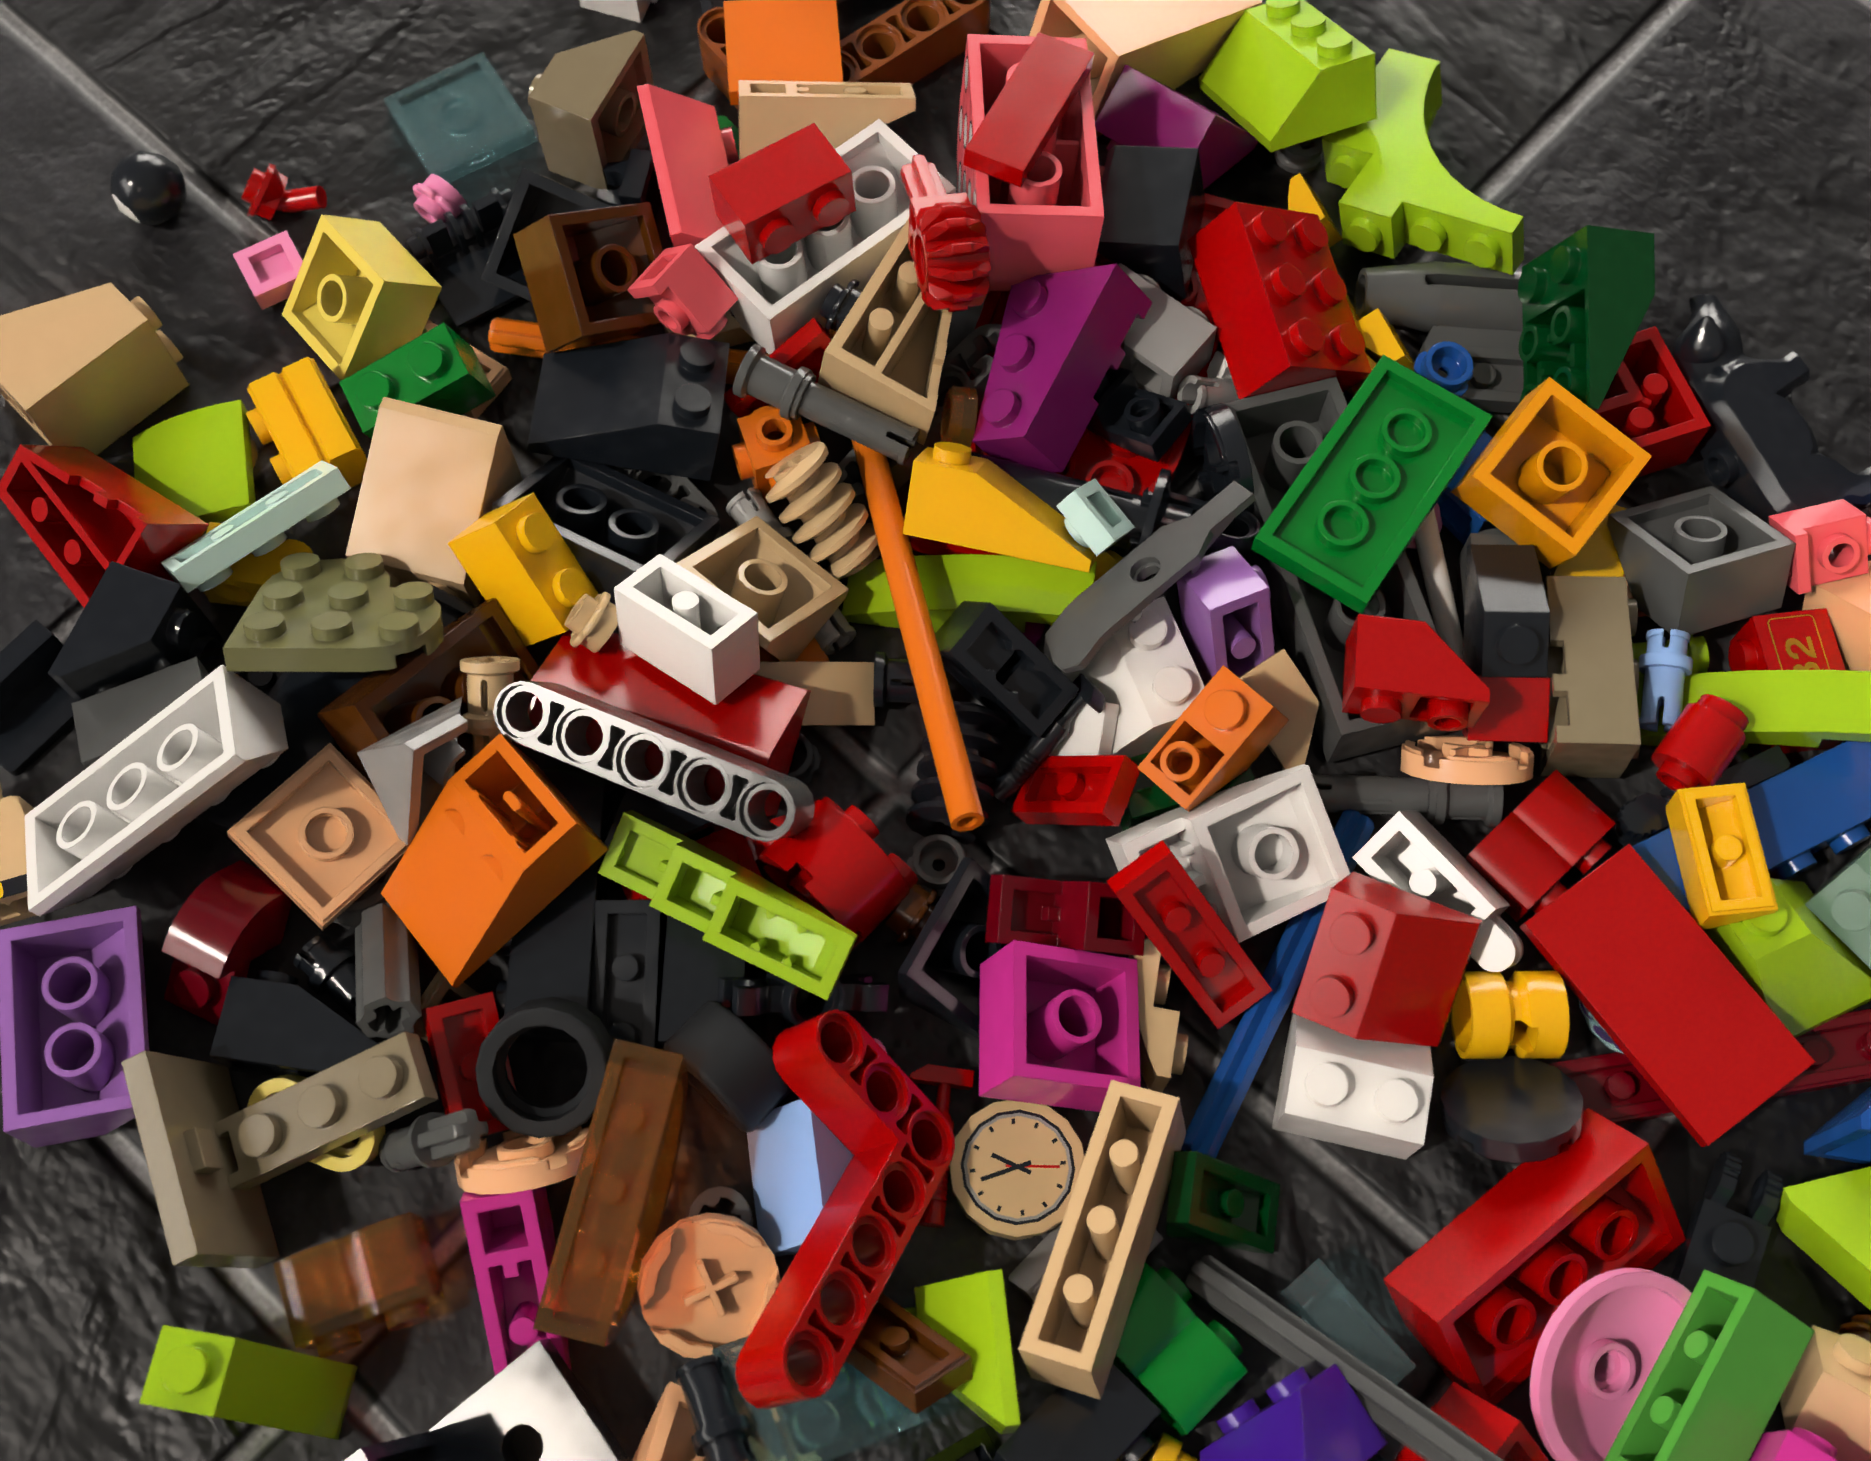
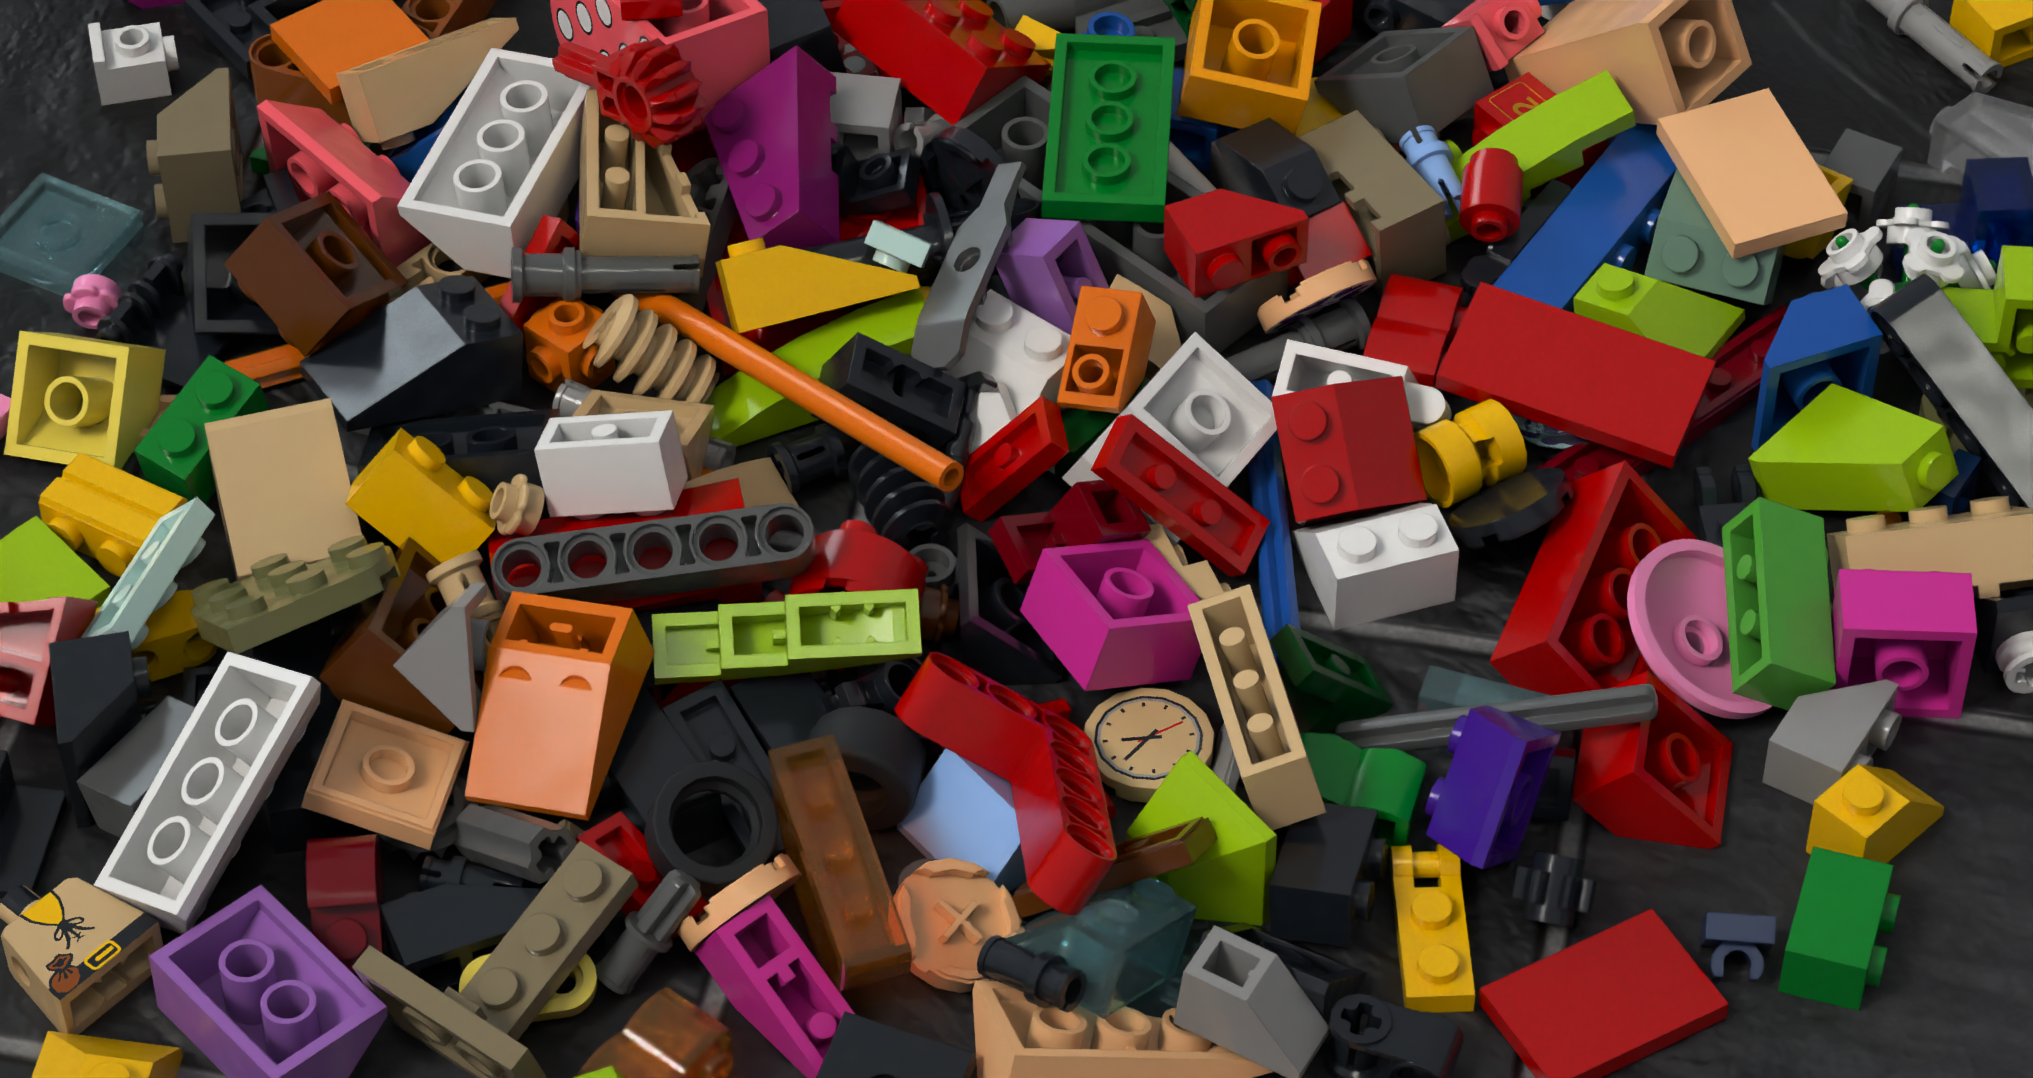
camera: 30 degrees left, 20 degrees down
(685, 292) = (410, 244): coral brick -> none
(783, 193) = (458, 125): red brick -> none
(838, 304) = (564, 197): black plate -> none
(959, 415) = (726, 229): clear orange tile -> none
(1720, 855) = (1553, 257): yellow slope -> none

